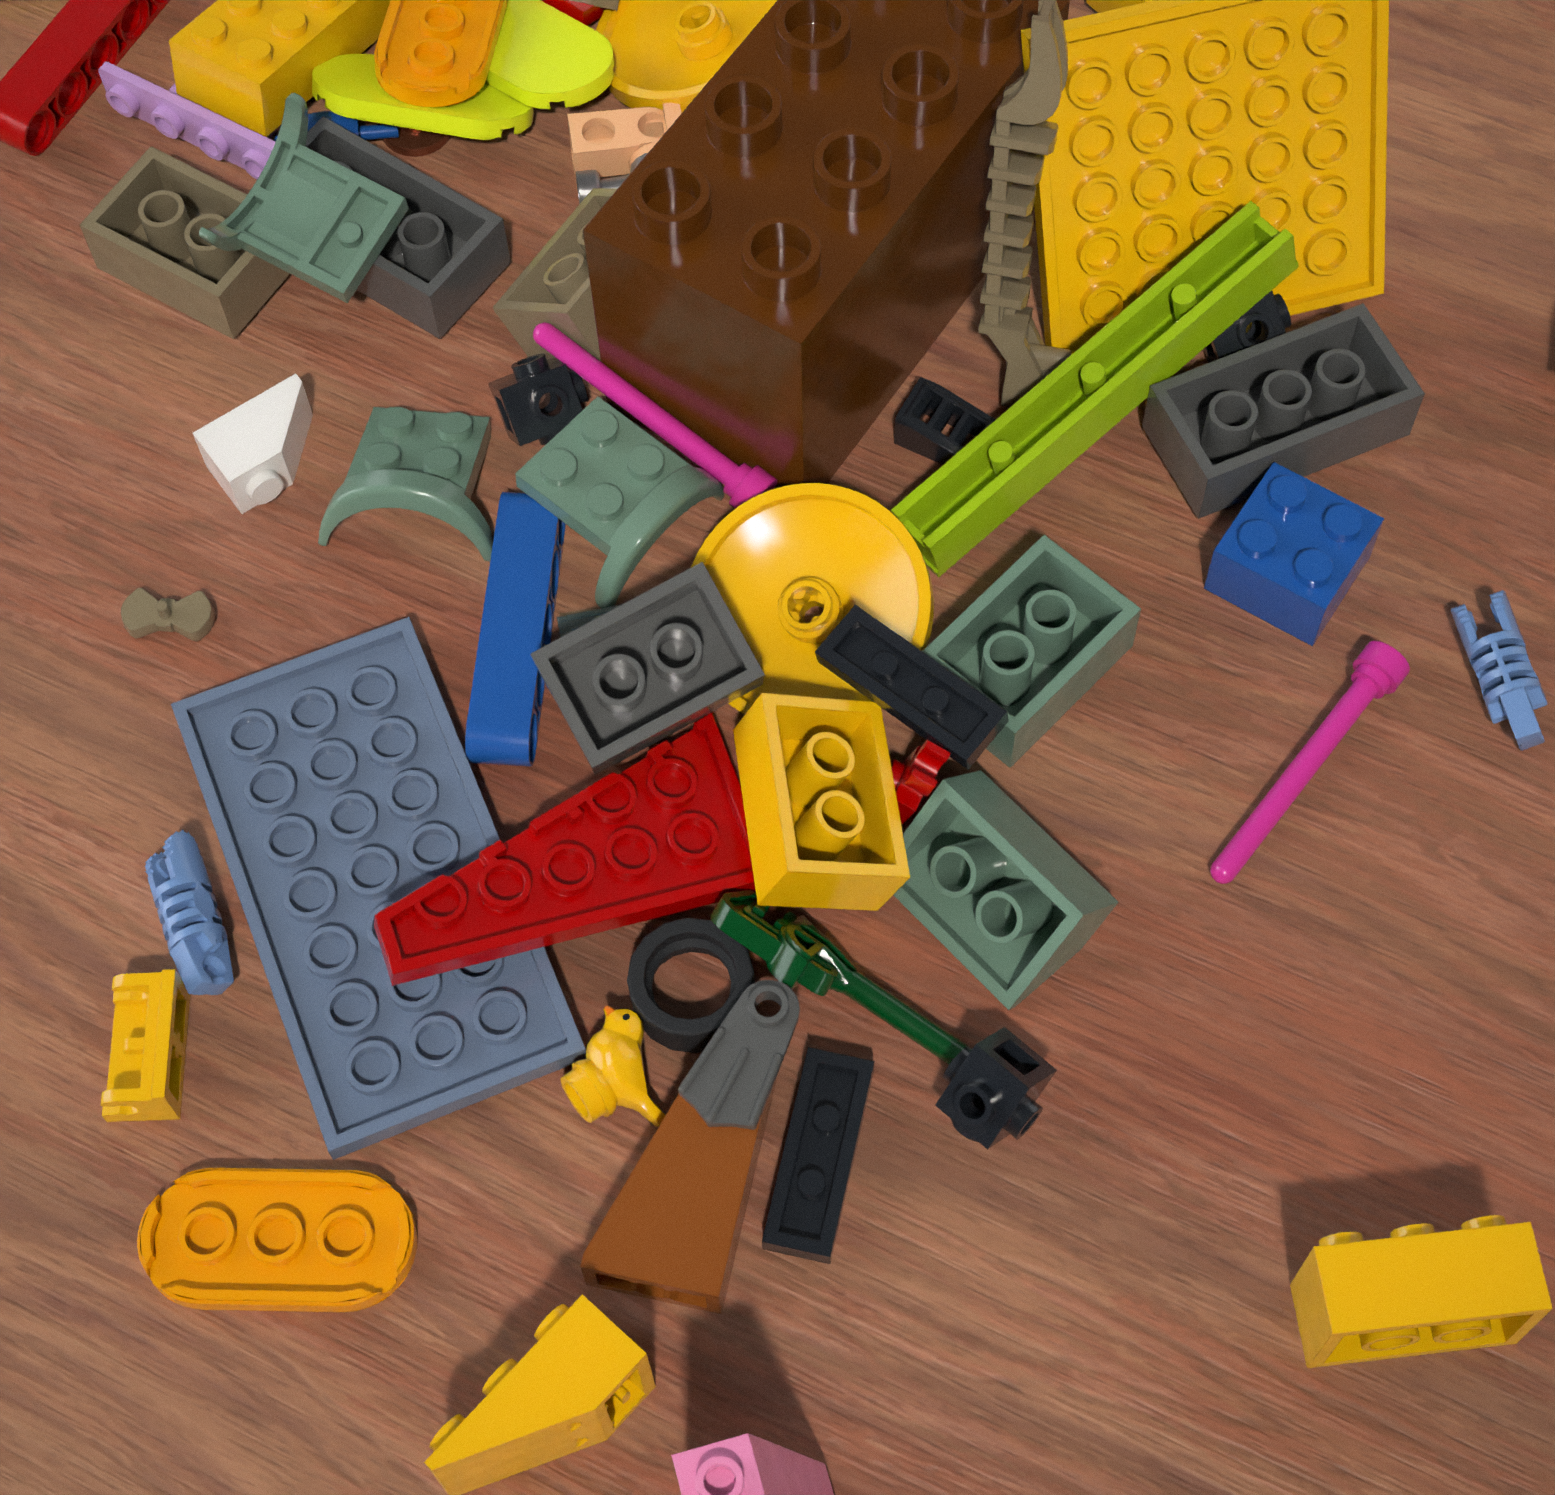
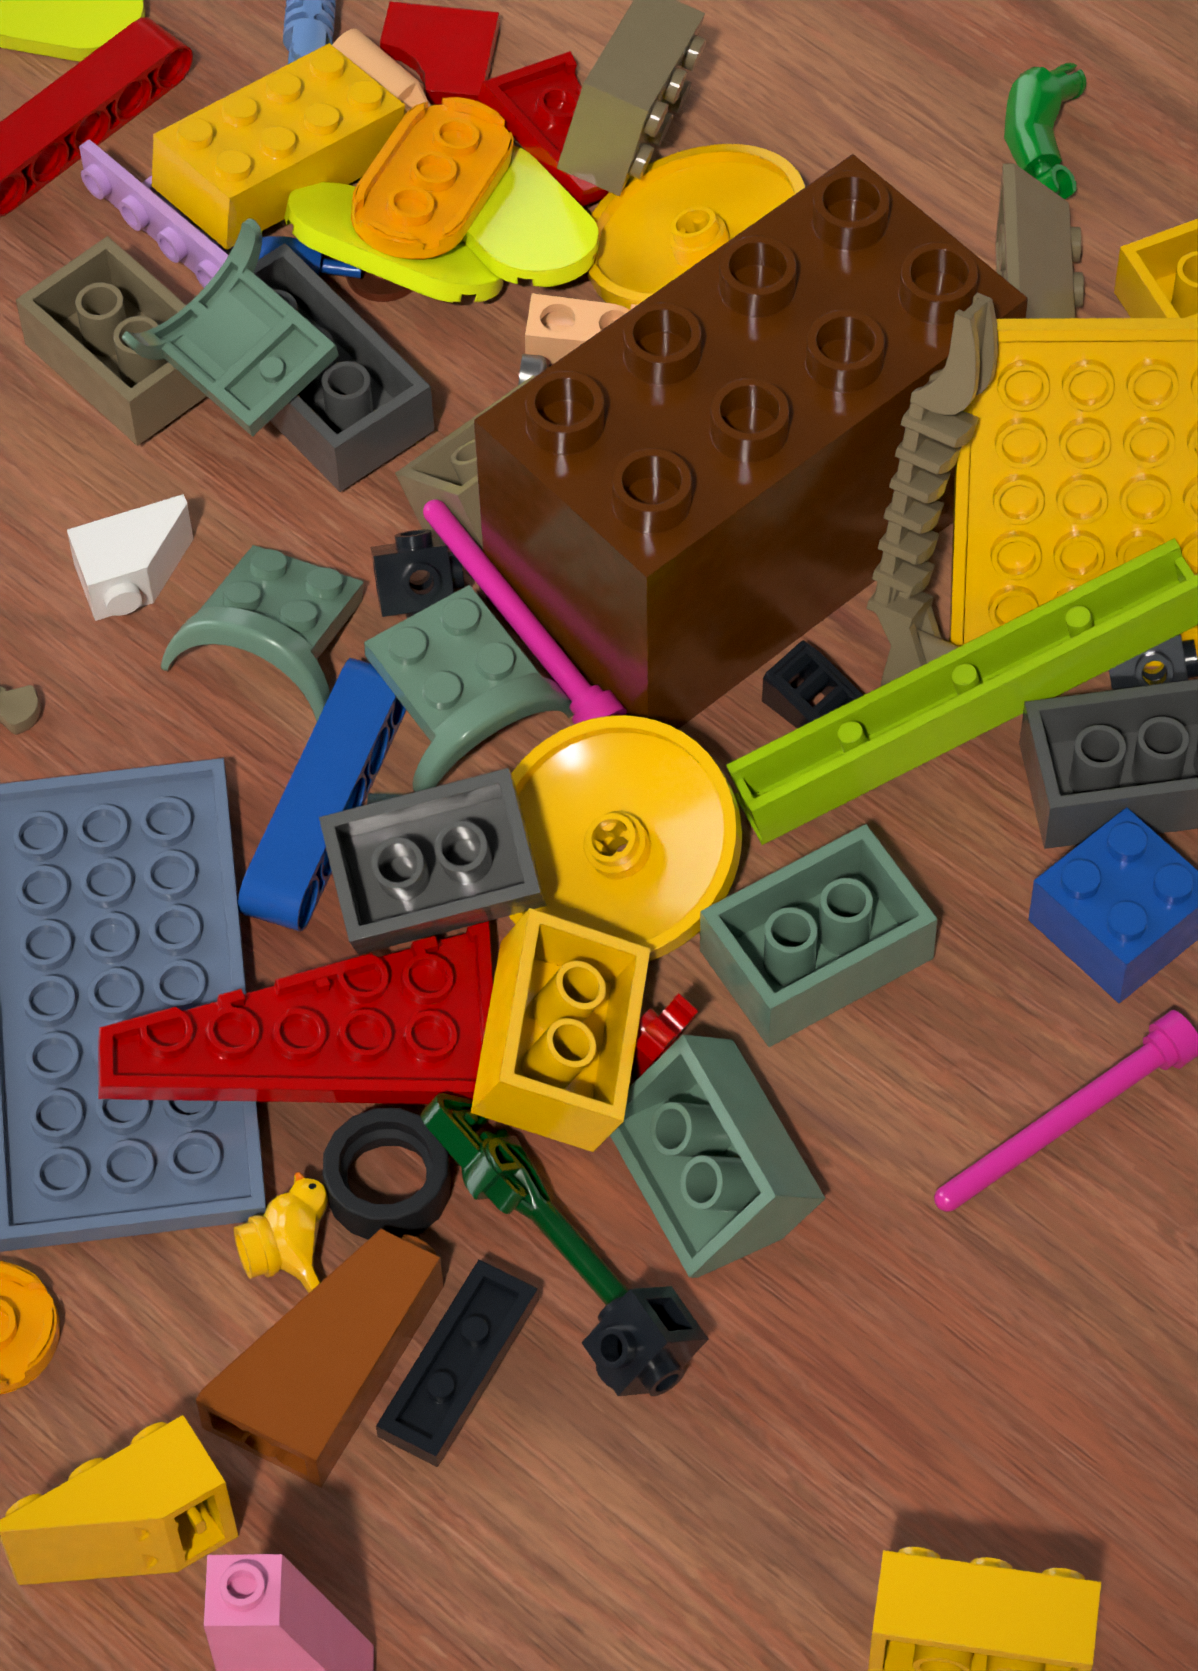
camera: 15 degrees right, 5 degrees down
(742, 1059) = (408, 1250): dark grey piece -> none
(912, 686) = (682, 939): black plate -> none

